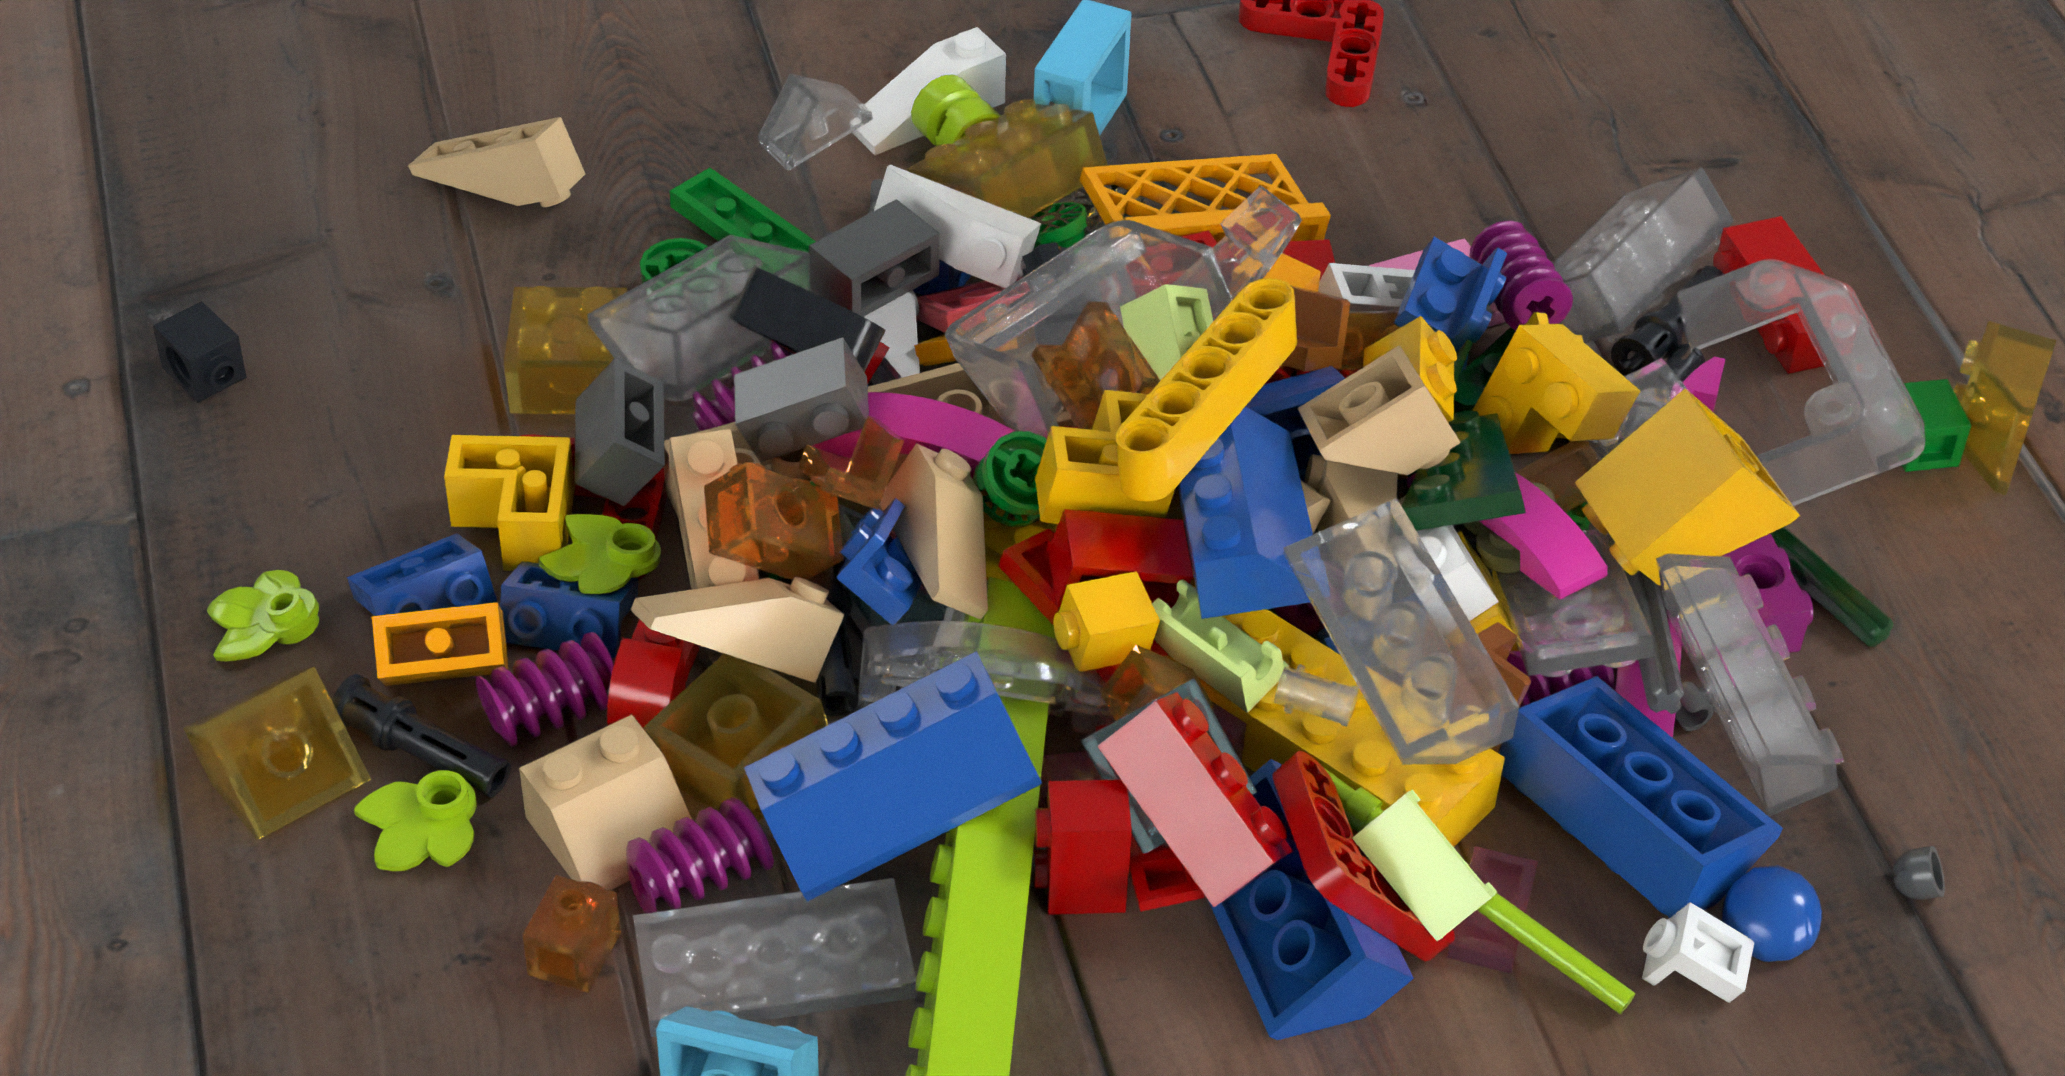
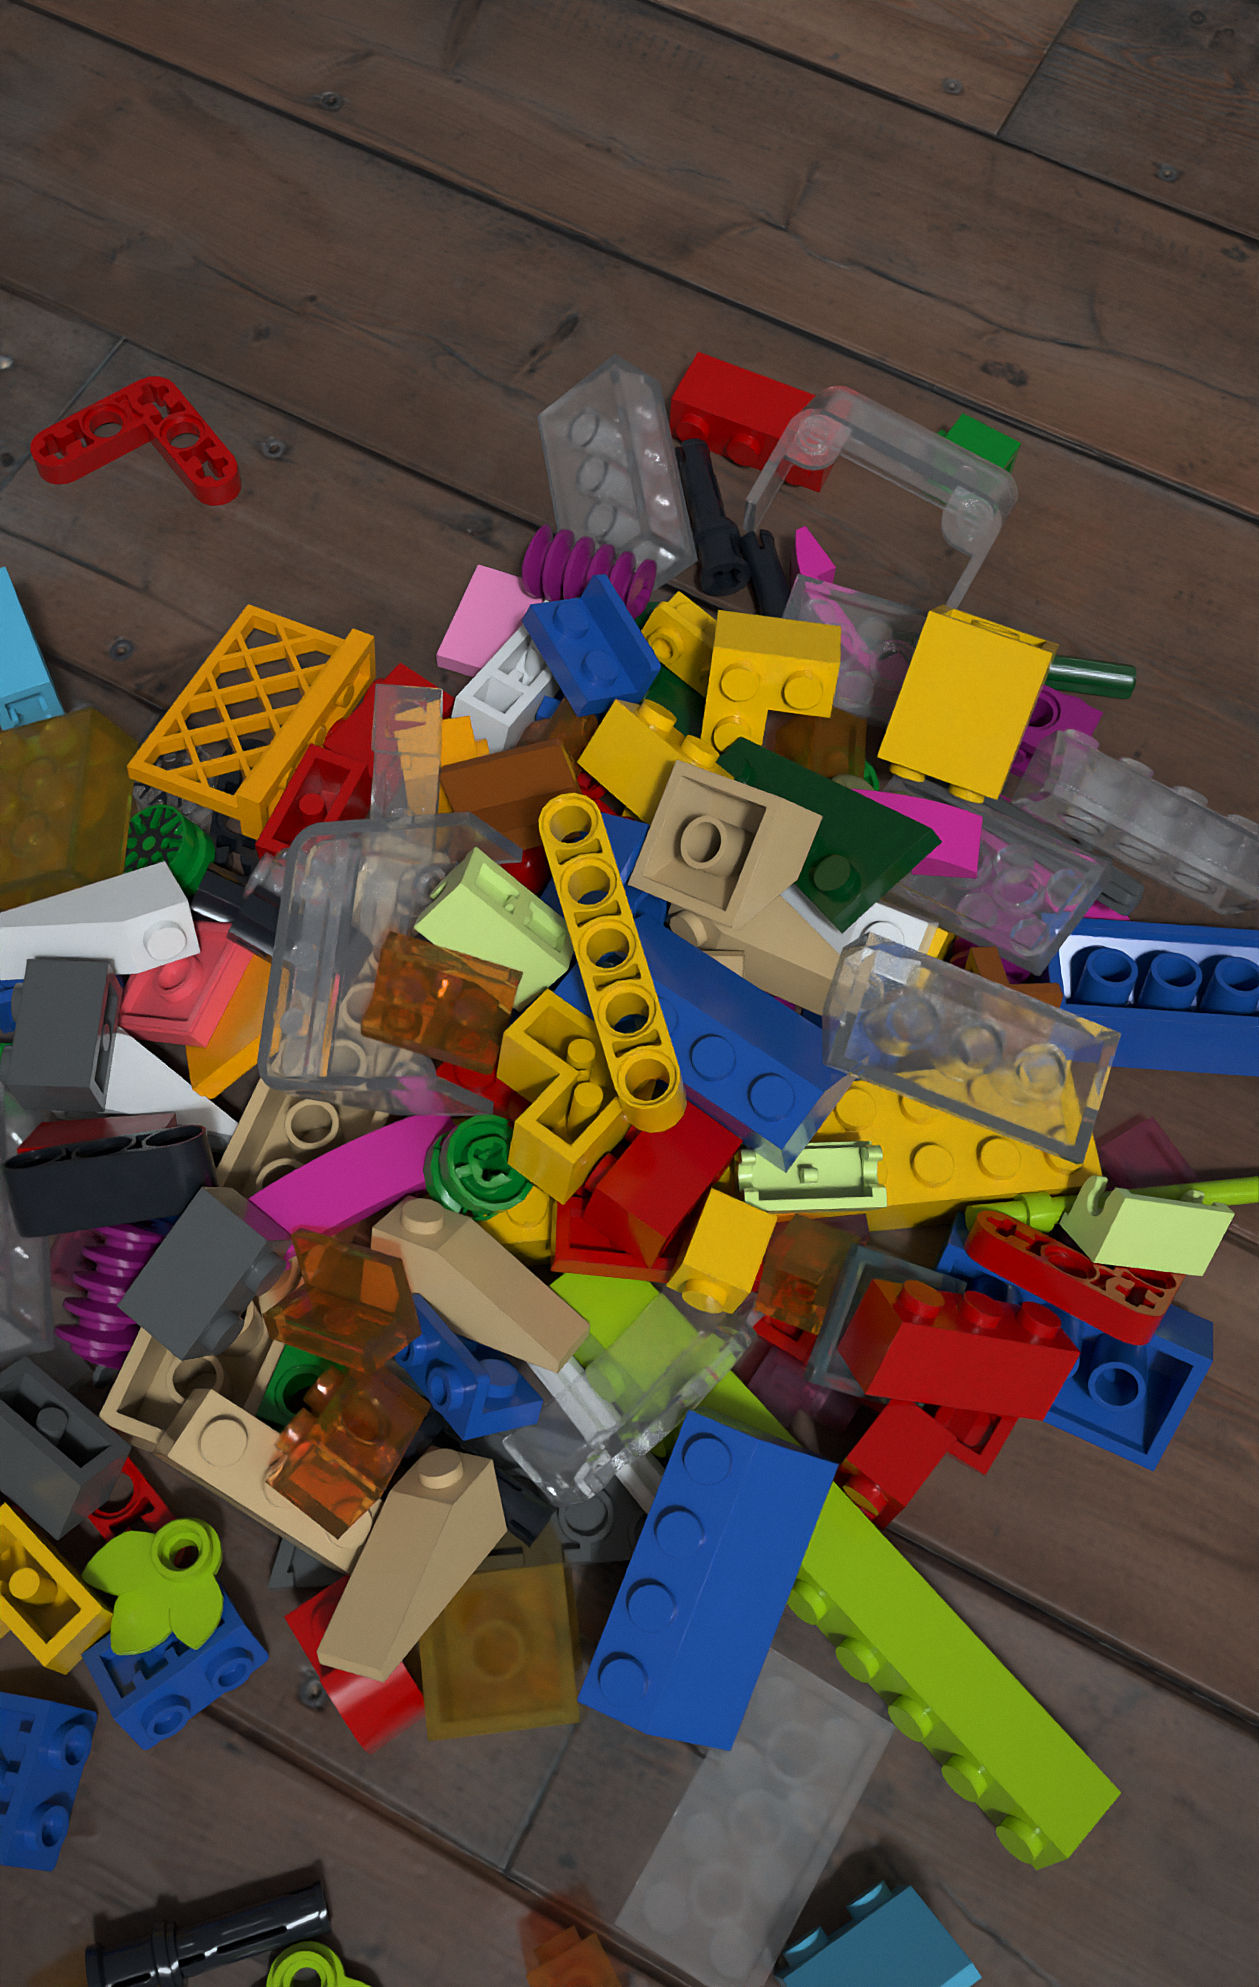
camera: 50 degrees left, 20 degrees up
(439, 644) = (126, 1842): light orange brick -> none
(547, 687) = (273, 1775): magenta piece -> none
(600, 797) = (465, 1836): tan slope -> none
(696, 852) = (596, 1805): magenta piece -> none
(1315, 695) = (918, 1153): clear pin -> none
(2001, 397) = (1027, 395): clear yellow slope -> none

